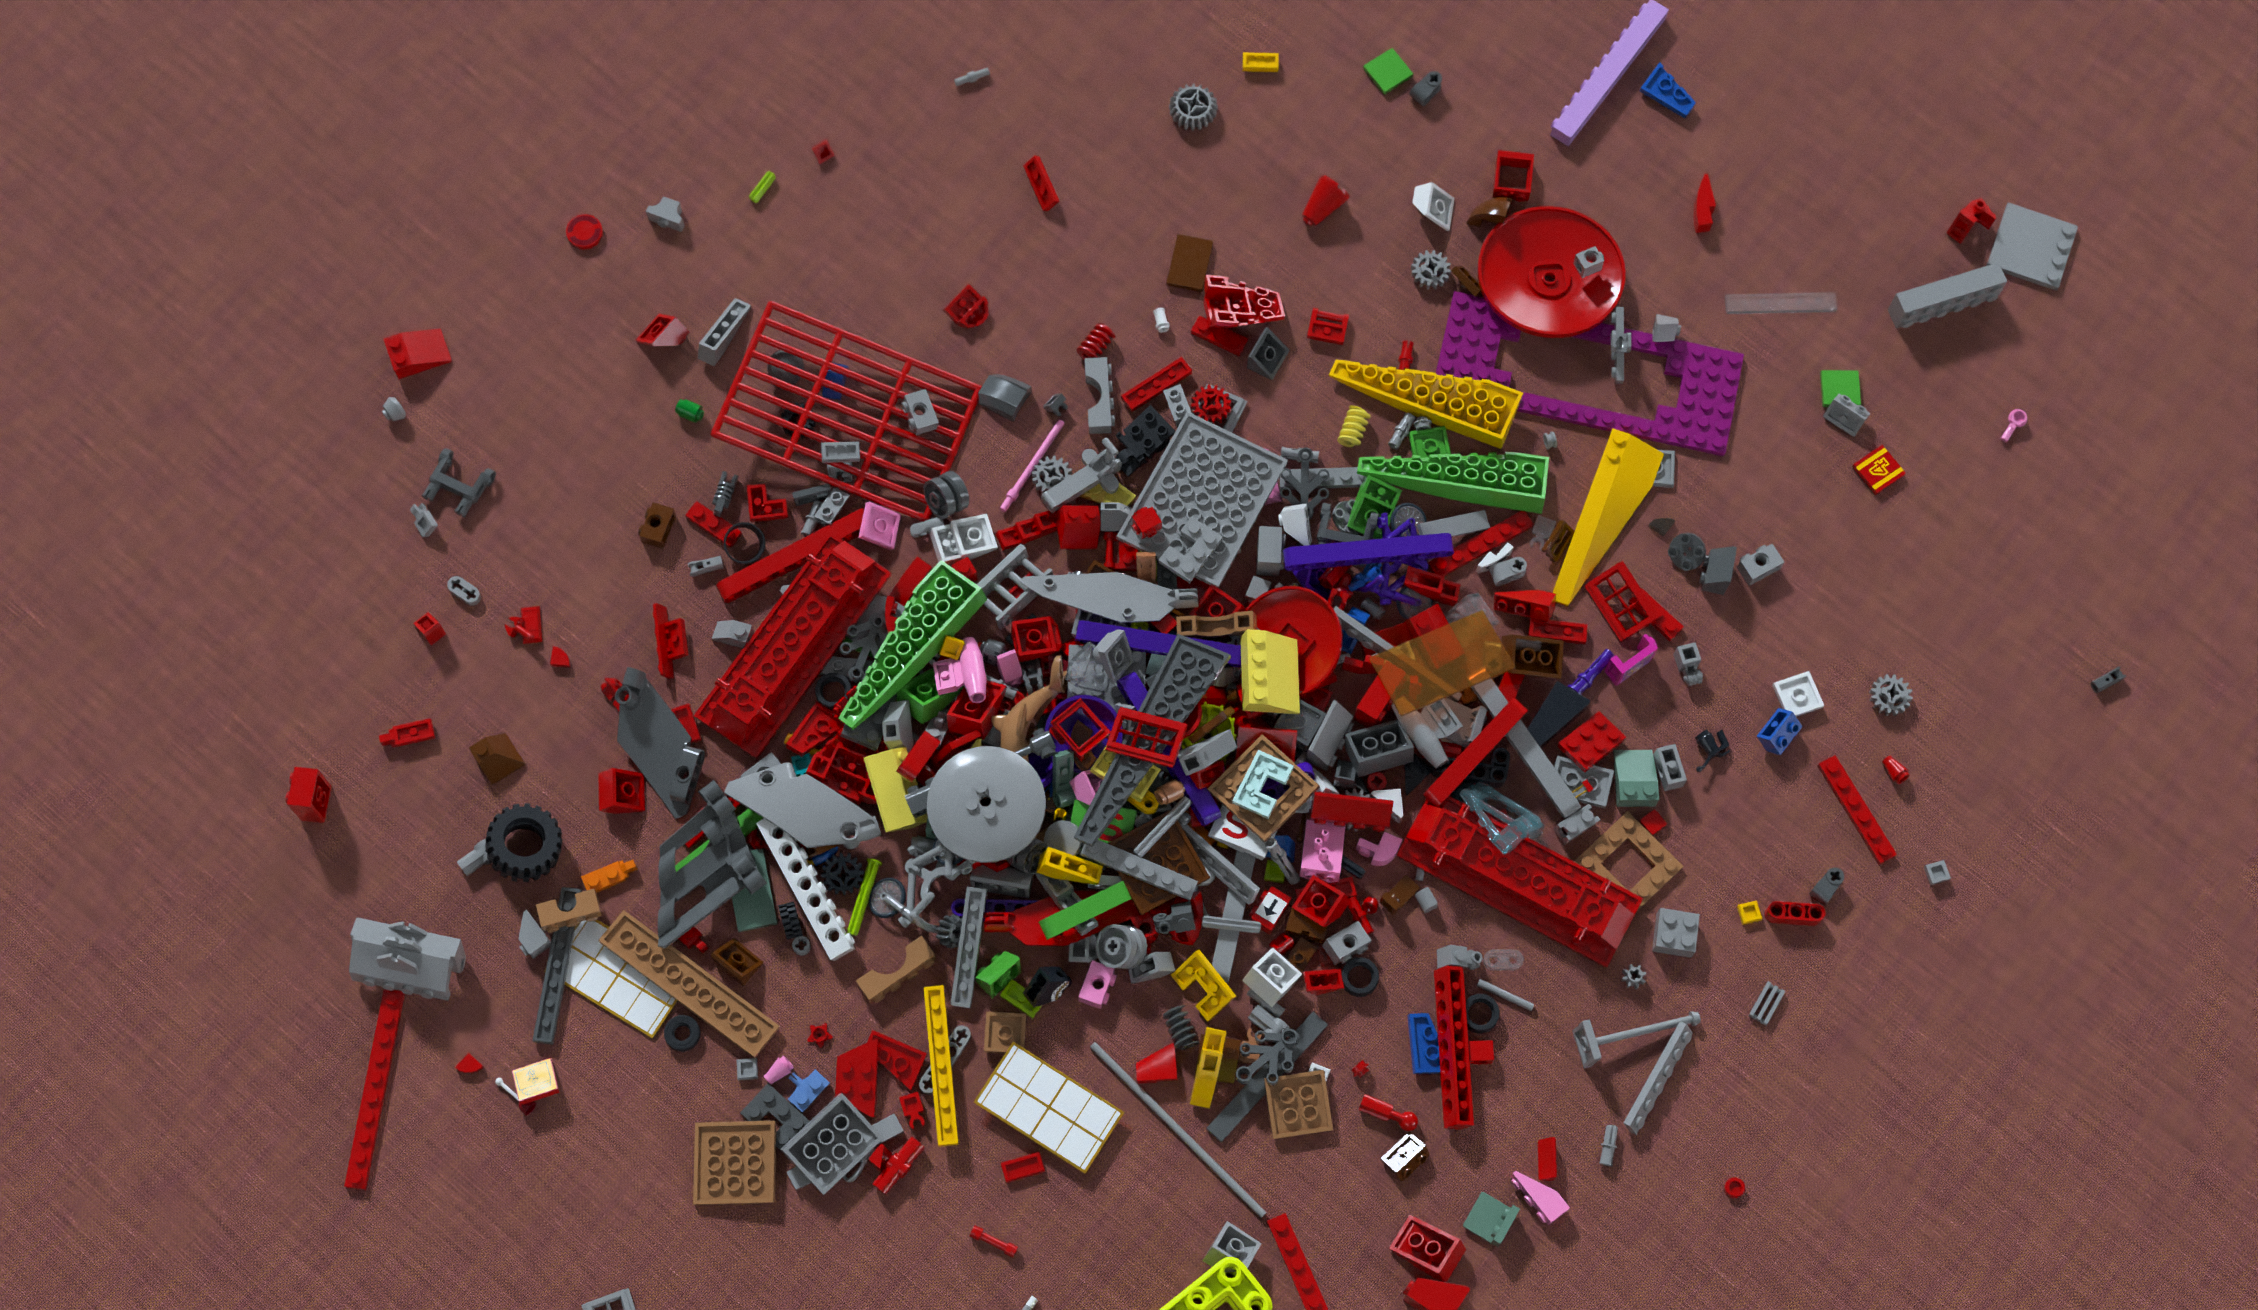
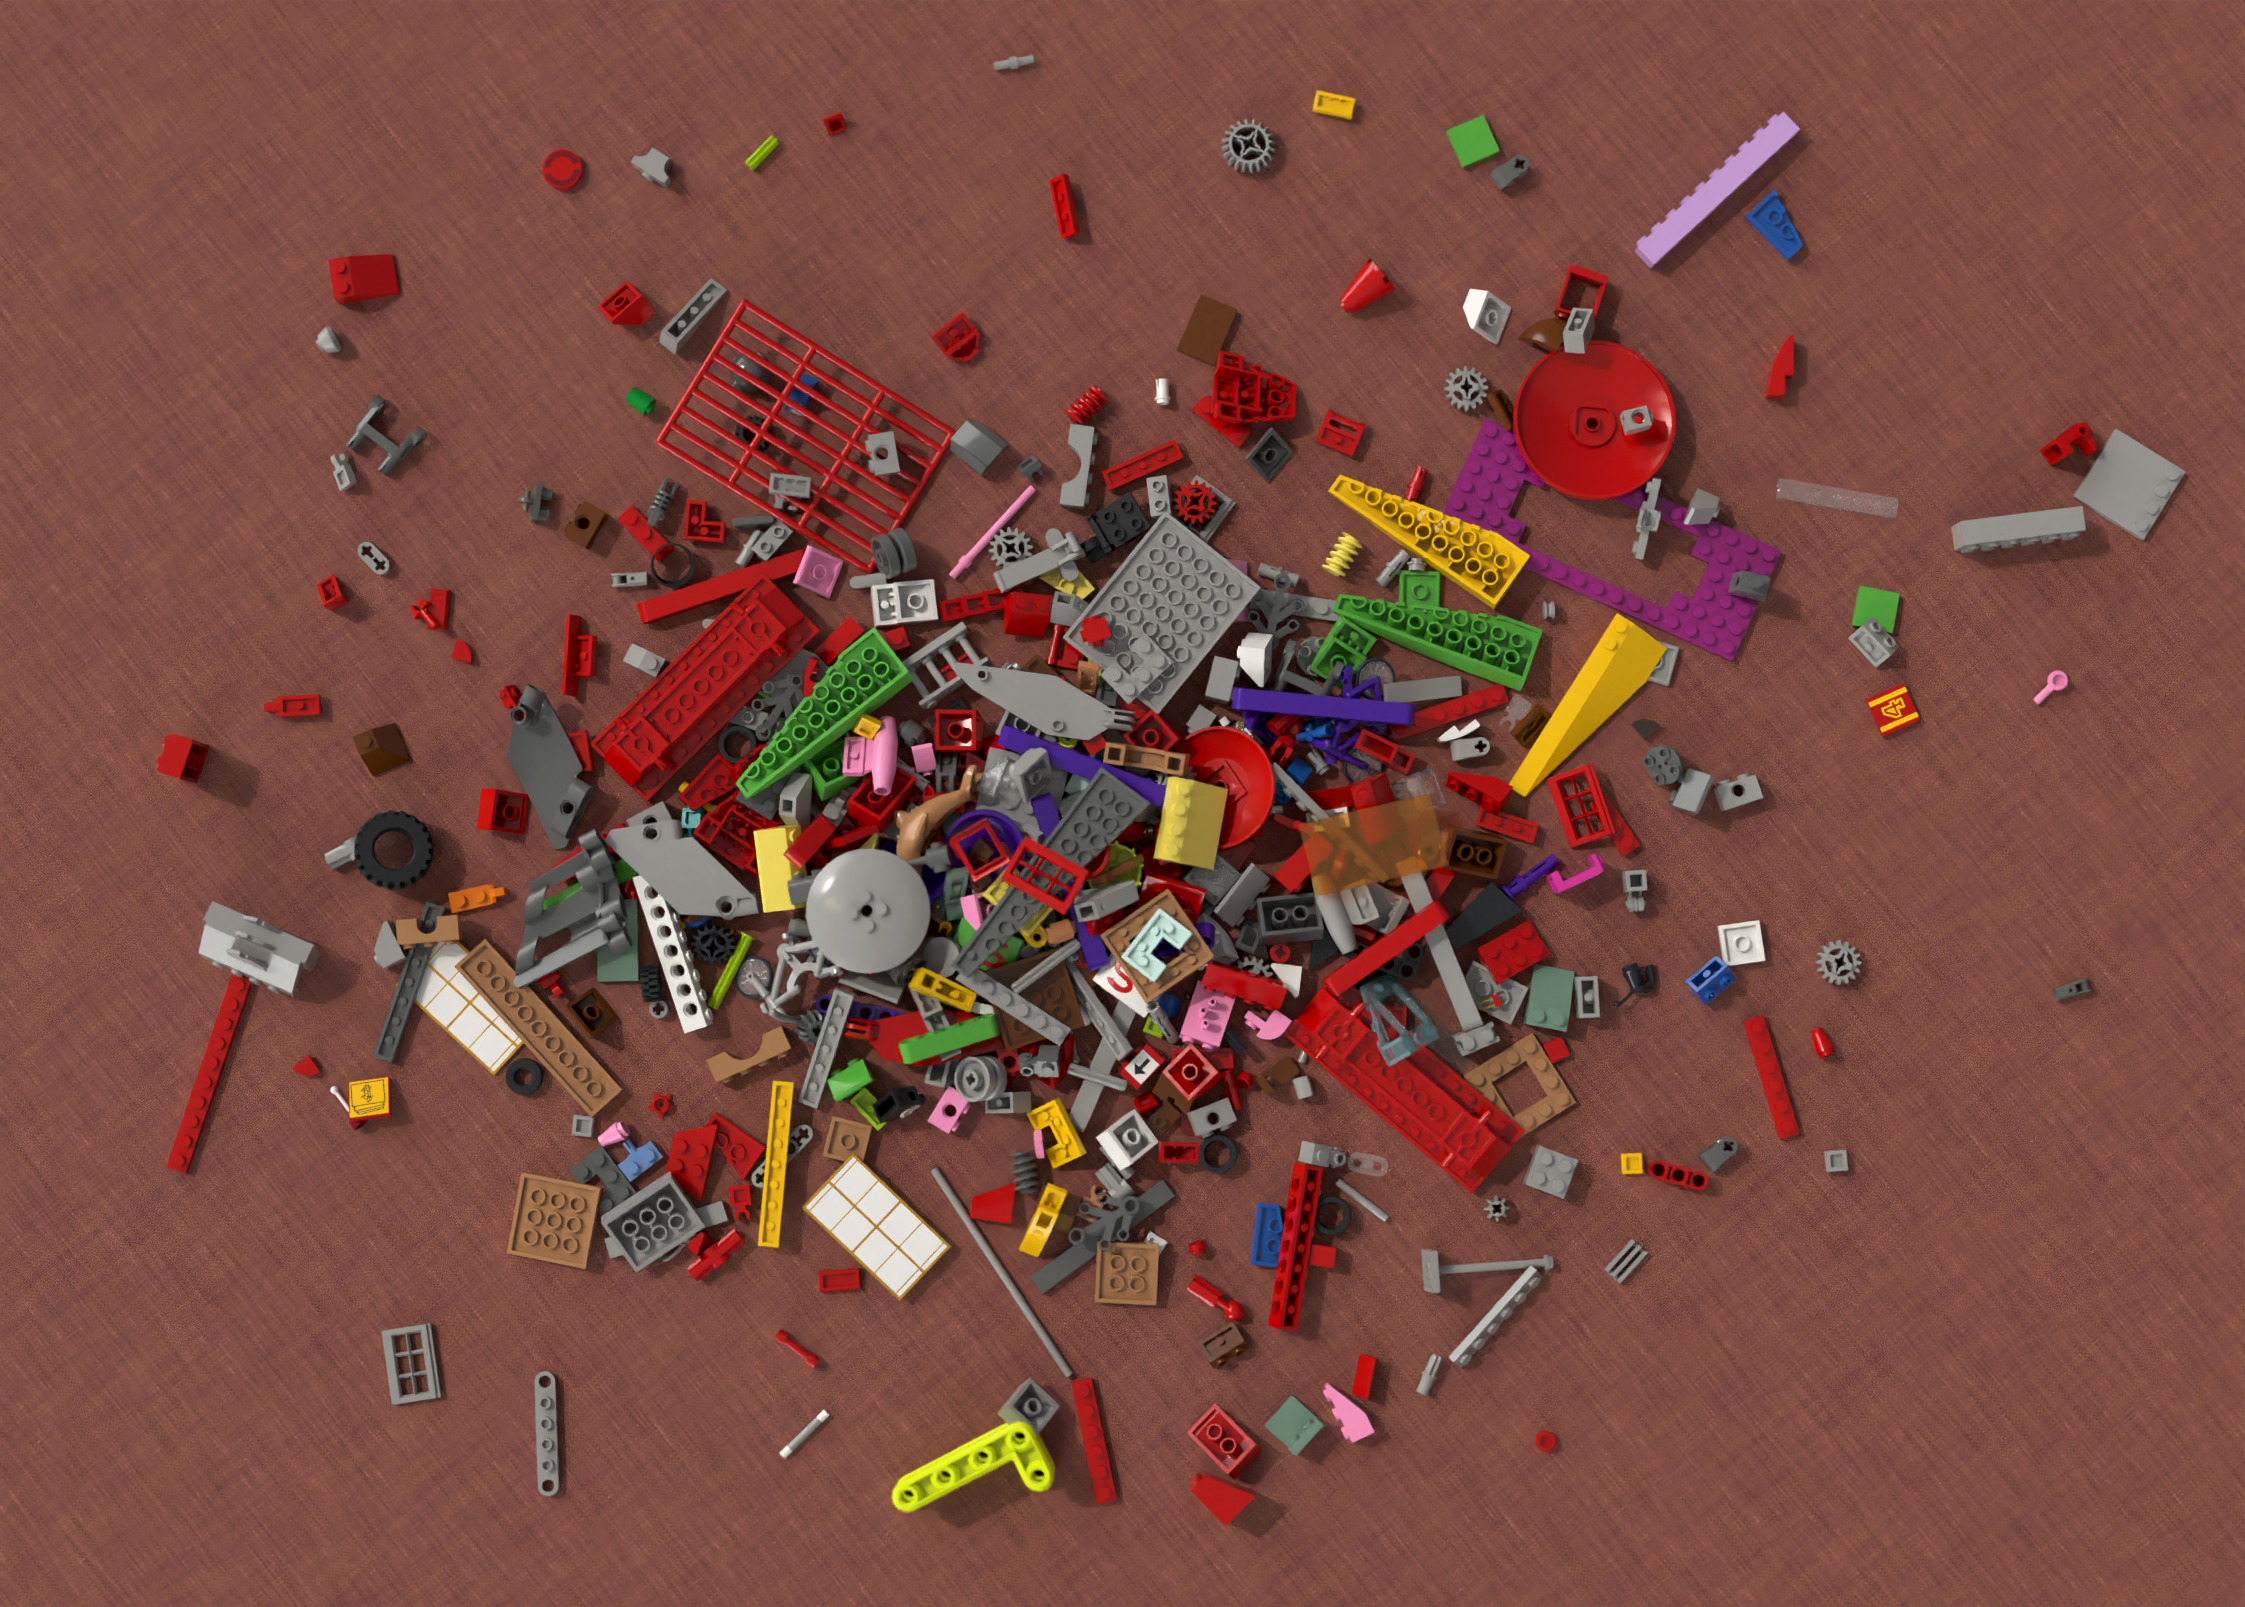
camera: 15 degrees right, 15 degrees up
(609, 505) = (539, 493): none -> dark grey hips
(1188, 999) = (1038, 1142): none -> bright pink tile
(1519, 199) = (1578, 330): none -> light grey brick
(1724, 383) = (1750, 585): none -> dark grey torso

